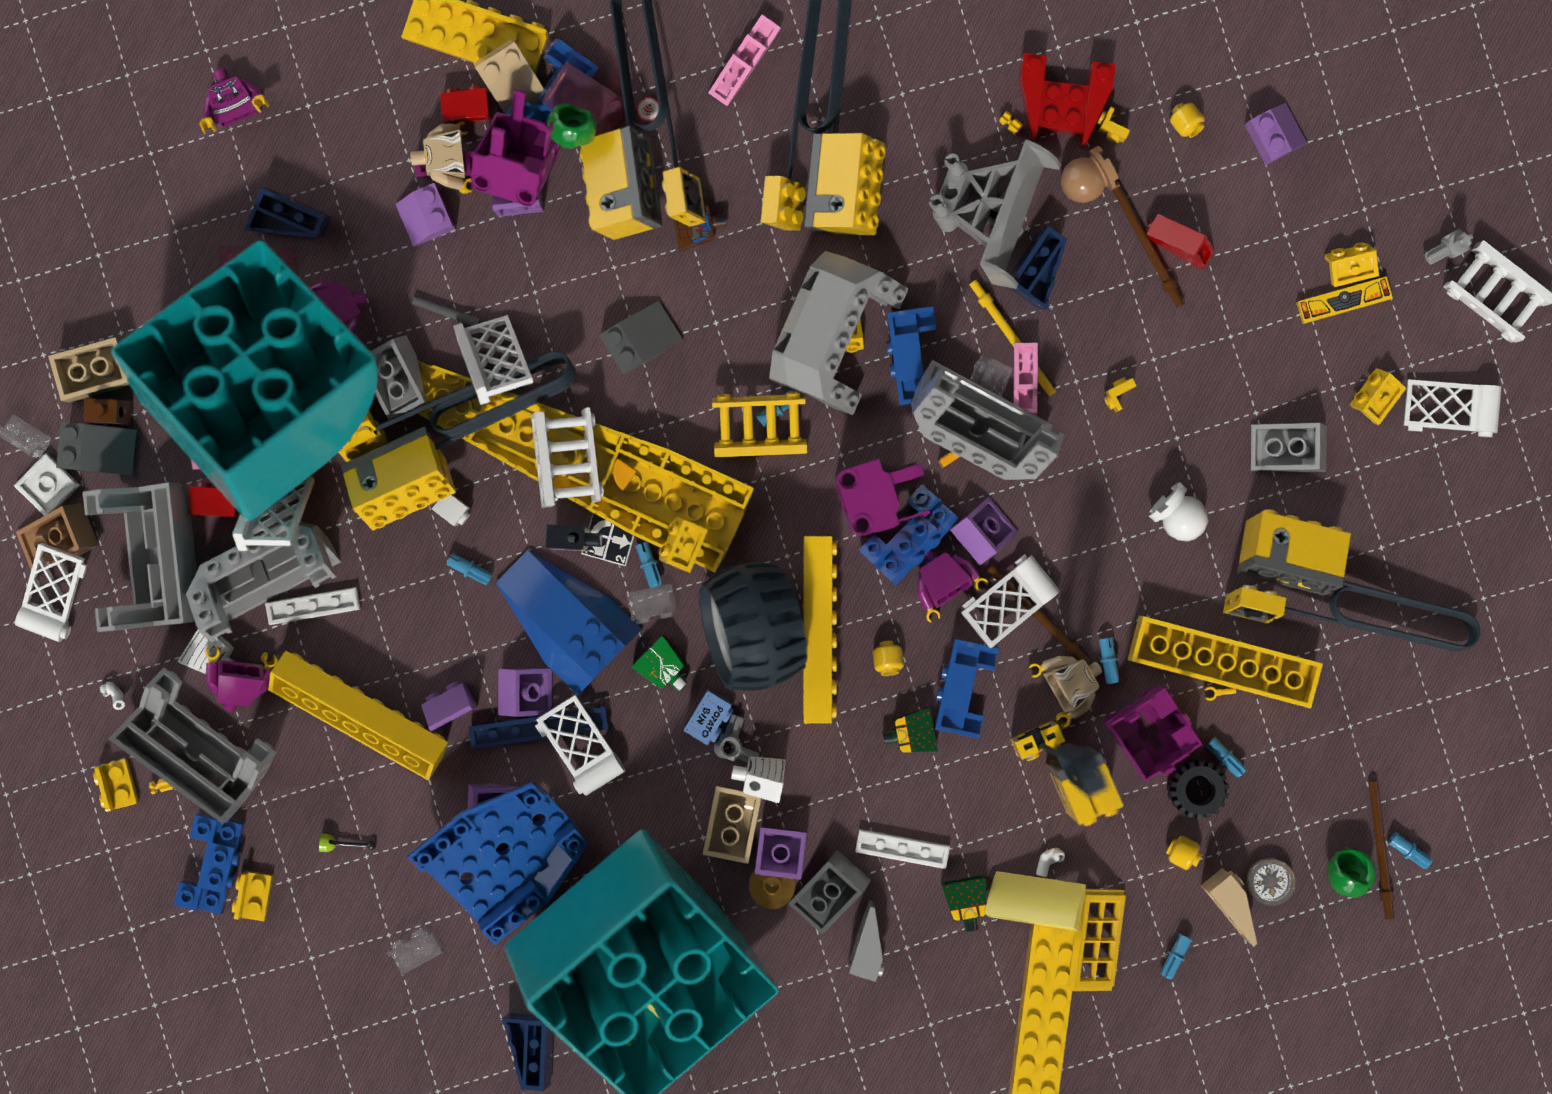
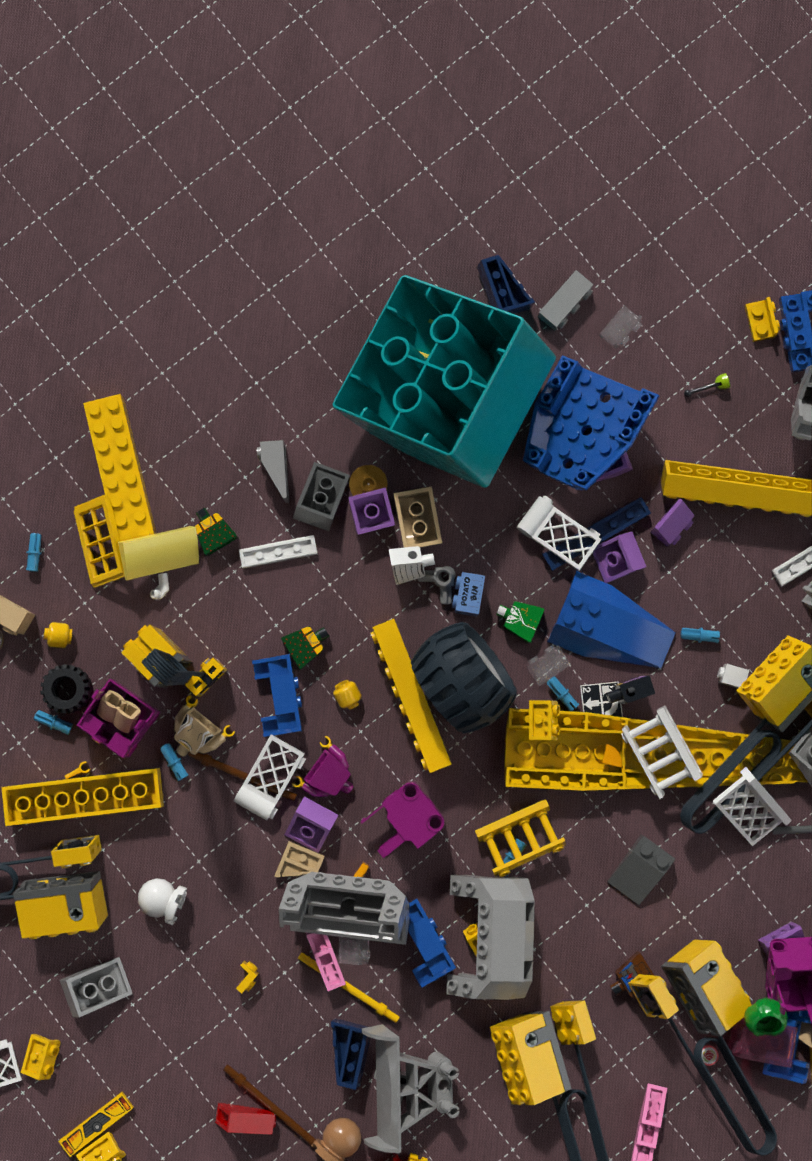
camera: 160 degrees right, 5 degrees down
(465, 1005) = (566, 301): none -> light grey brick
(913, 540) = (363, 796): blue bracket -> none
(1013, 496) = (298, 861): none -> tan wing
(1149, 740) = (118, 711): none -> tan brick

